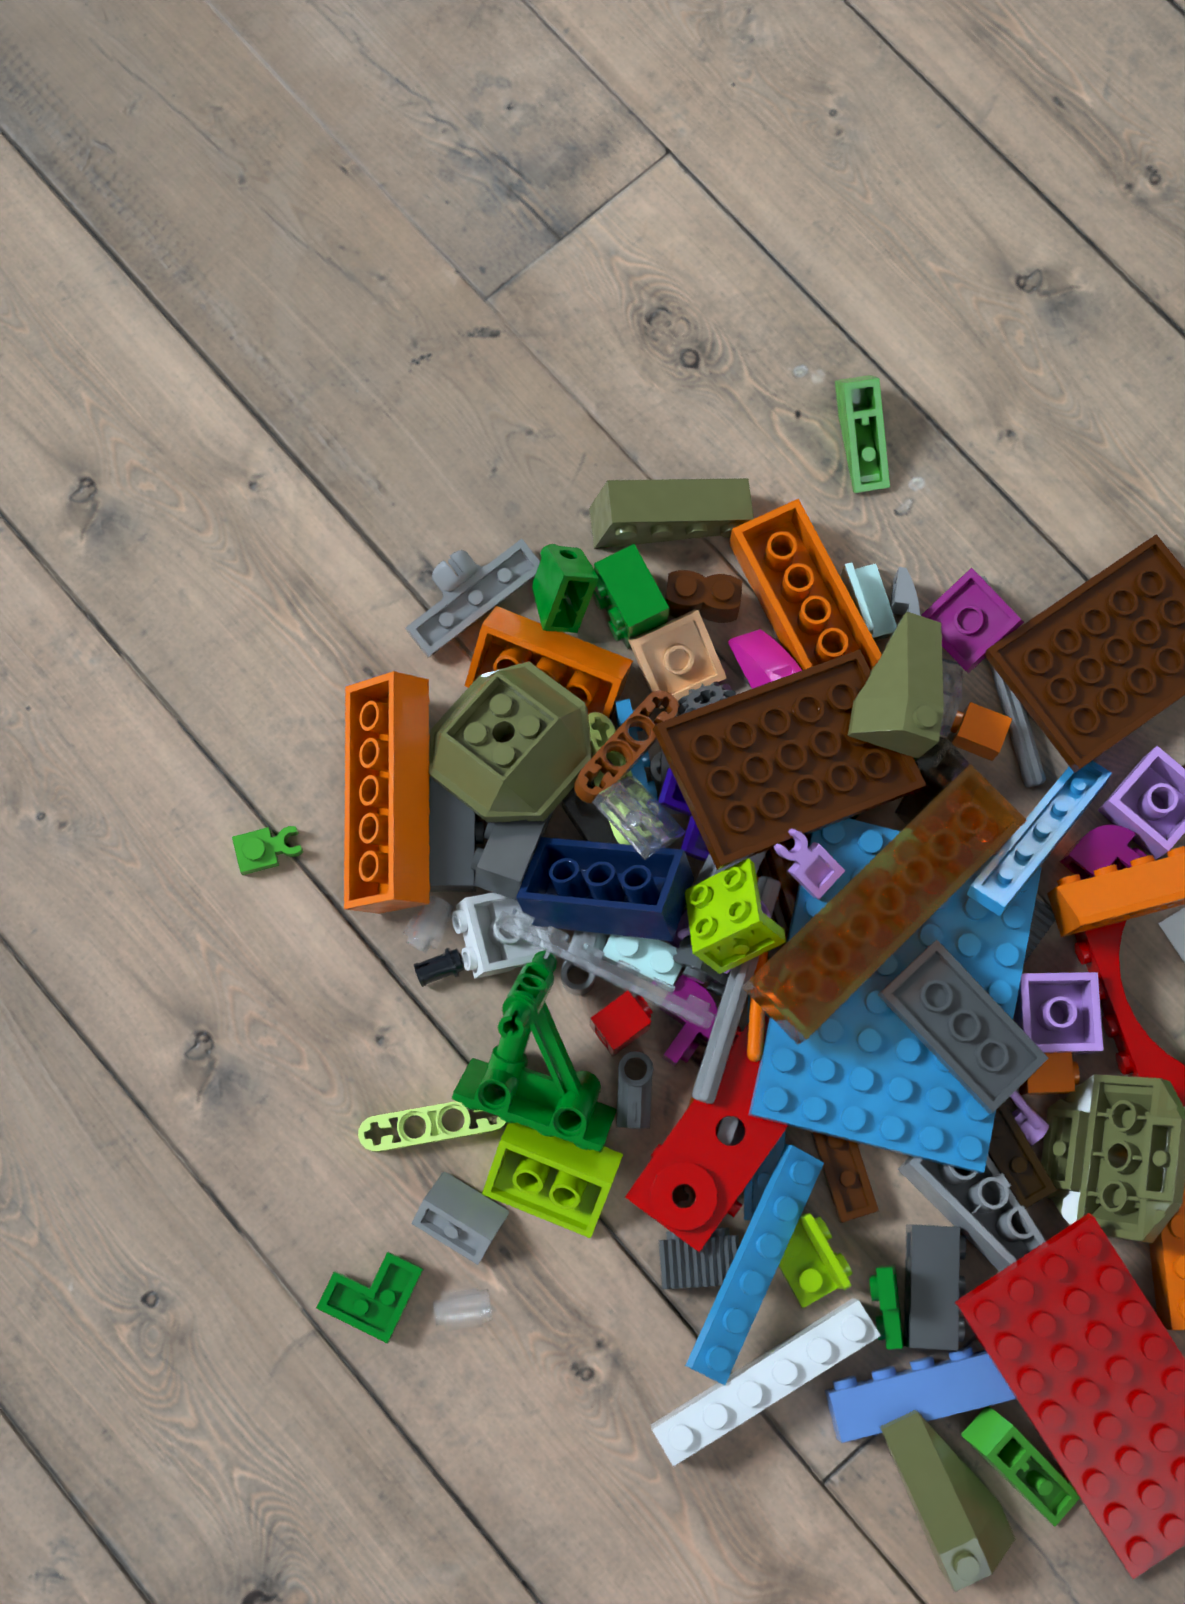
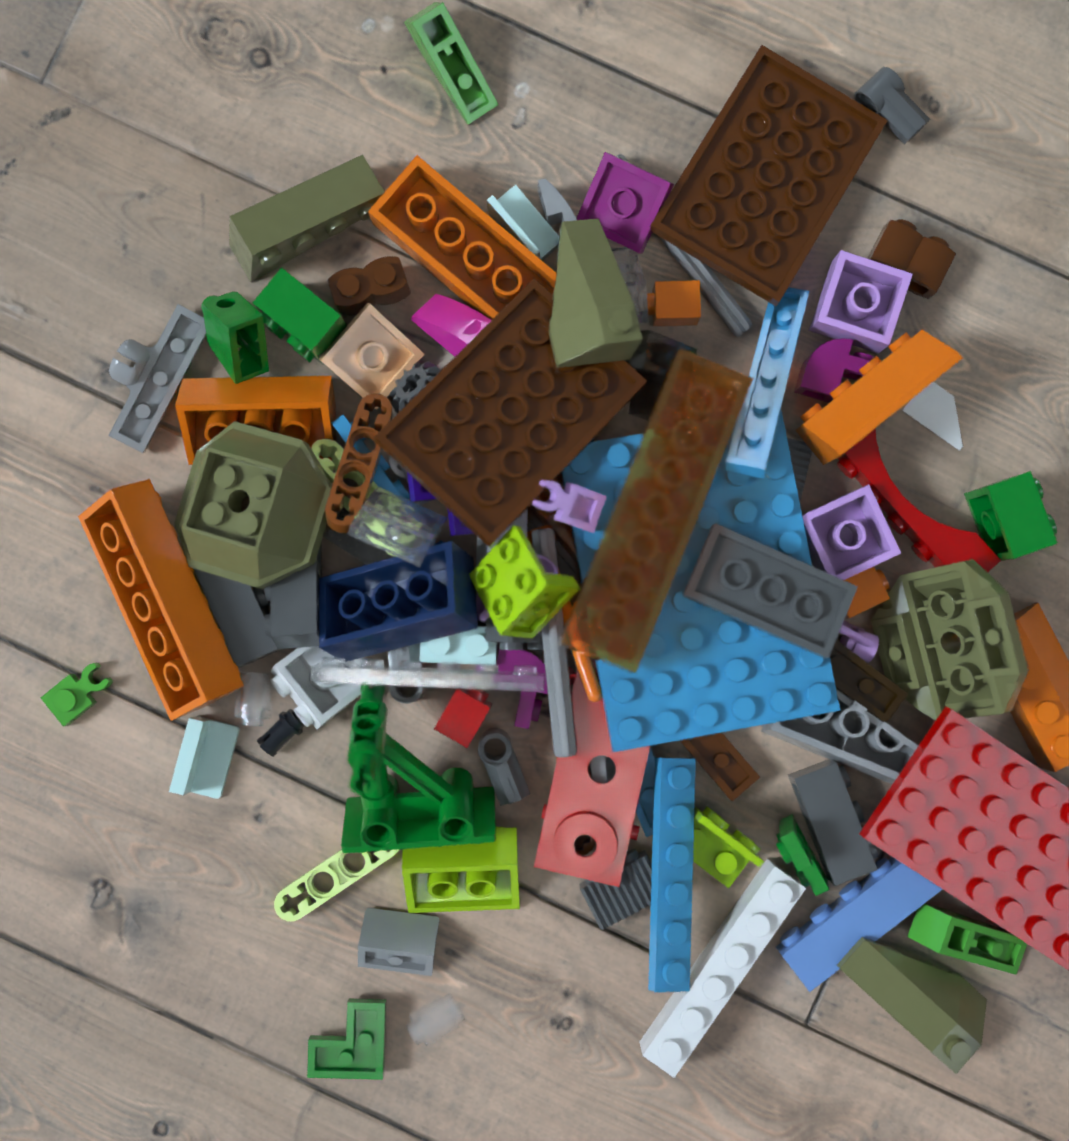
camera: 25 degrees left, 10 degrees up
(357, 959) = (204, 757): none -> light aqua panel

